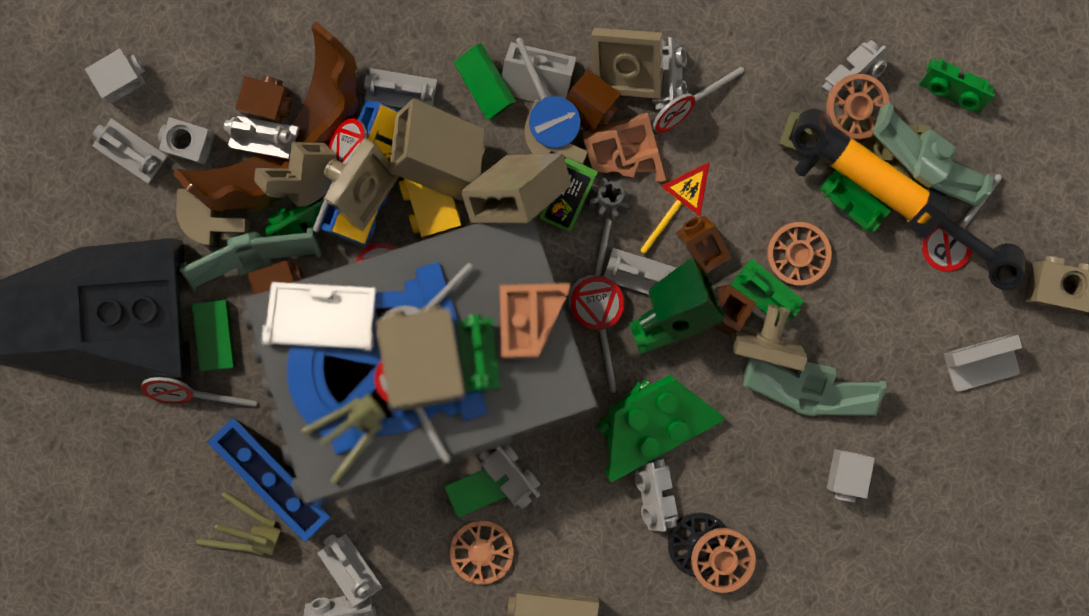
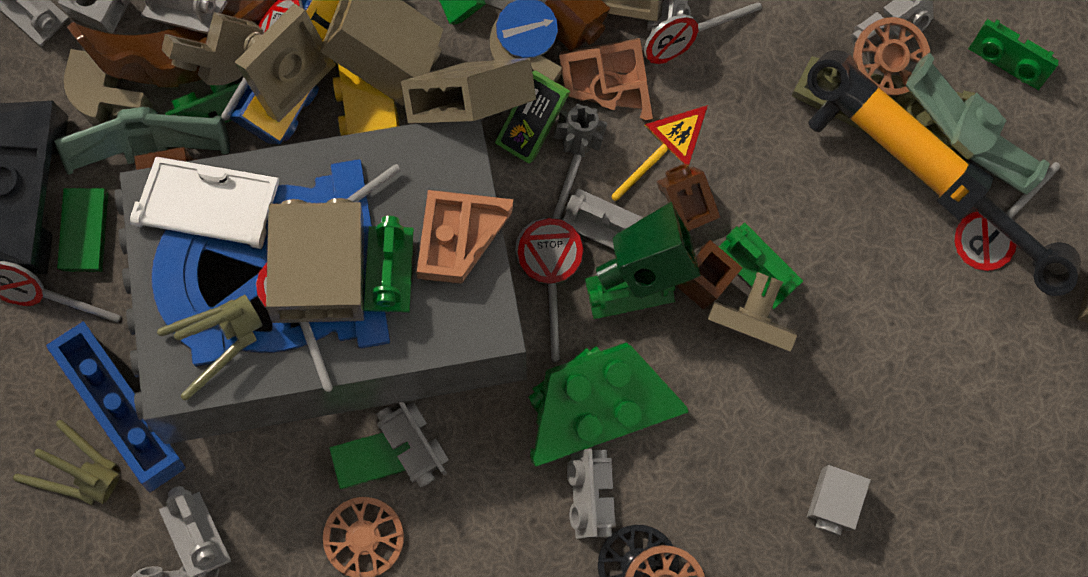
camera: 15 degrees right, 10 degrees down
(799, 253) = (803, 224): nougat wheel -> none
(814, 389) = (802, 388): sand green plate -> none
(856, 201) = (877, 168): green hinge -> none
(983, 362) = (1018, 384): light grey panel -> none

